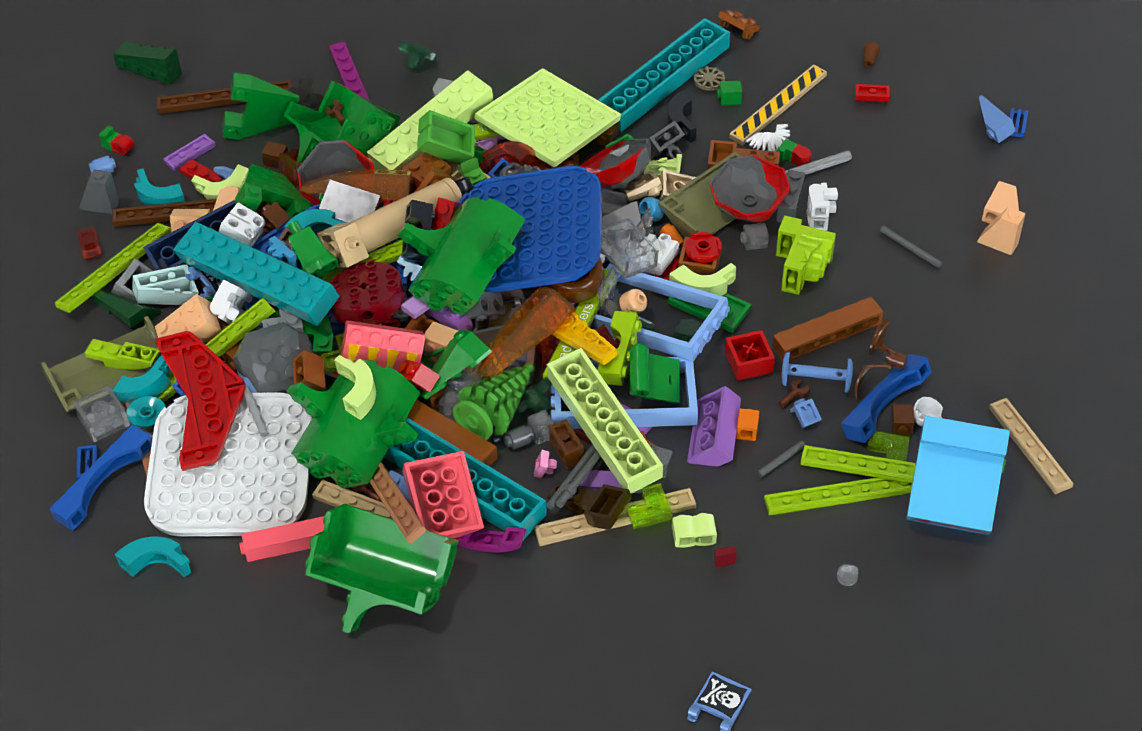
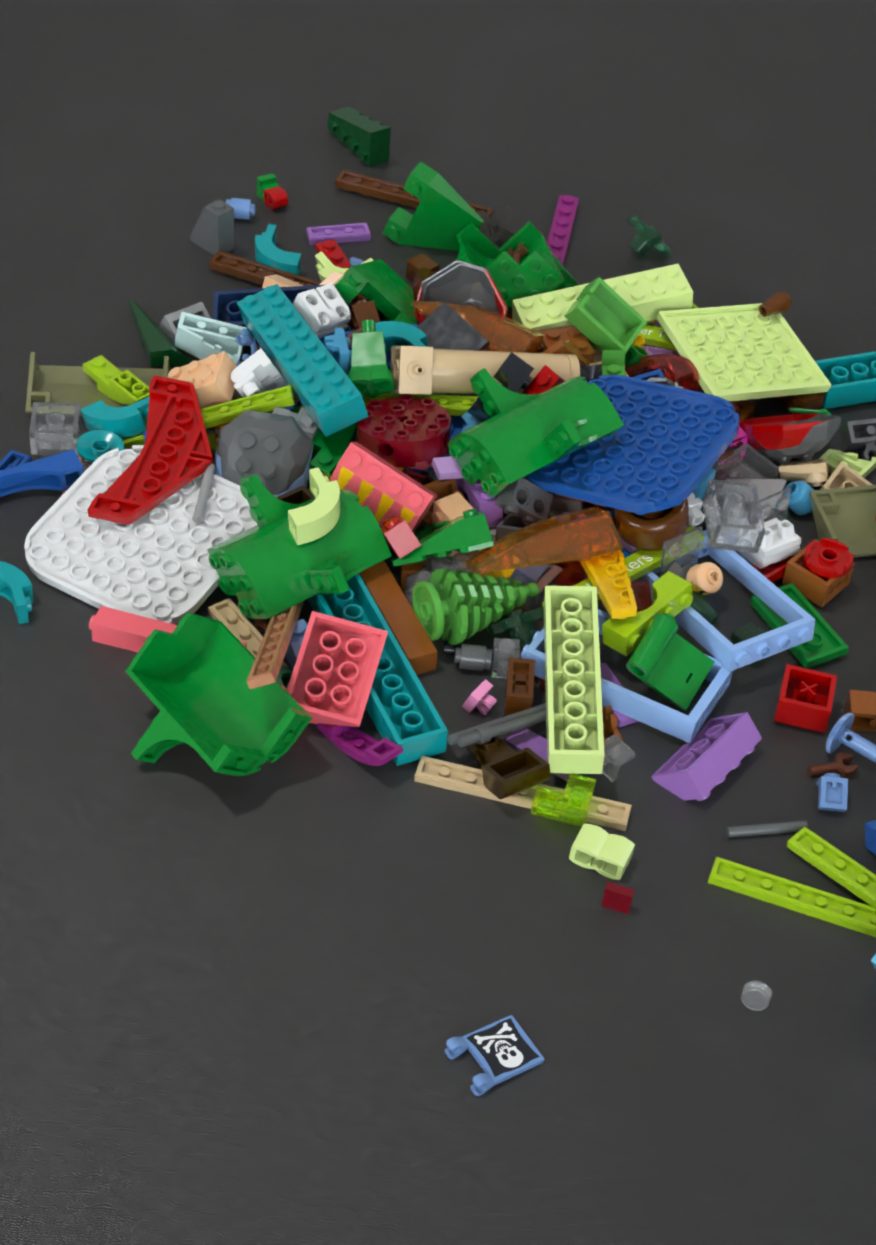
camera: 25 degrees right, 5 degrees down
(89, 243) = (173, 272): clear red slope -> none
(110, 269) = (159, 304): lime tile -> none
(309, 370) = (284, 476): dark orange brick -> none
(548, 69) = (775, 304): none -> reddish brown cone
(672, 231) = (806, 531): orange cone -> none
(713, 283) = (815, 602): yellowish green arch -> none
(747, 424) = (750, 771): orange brick -> none

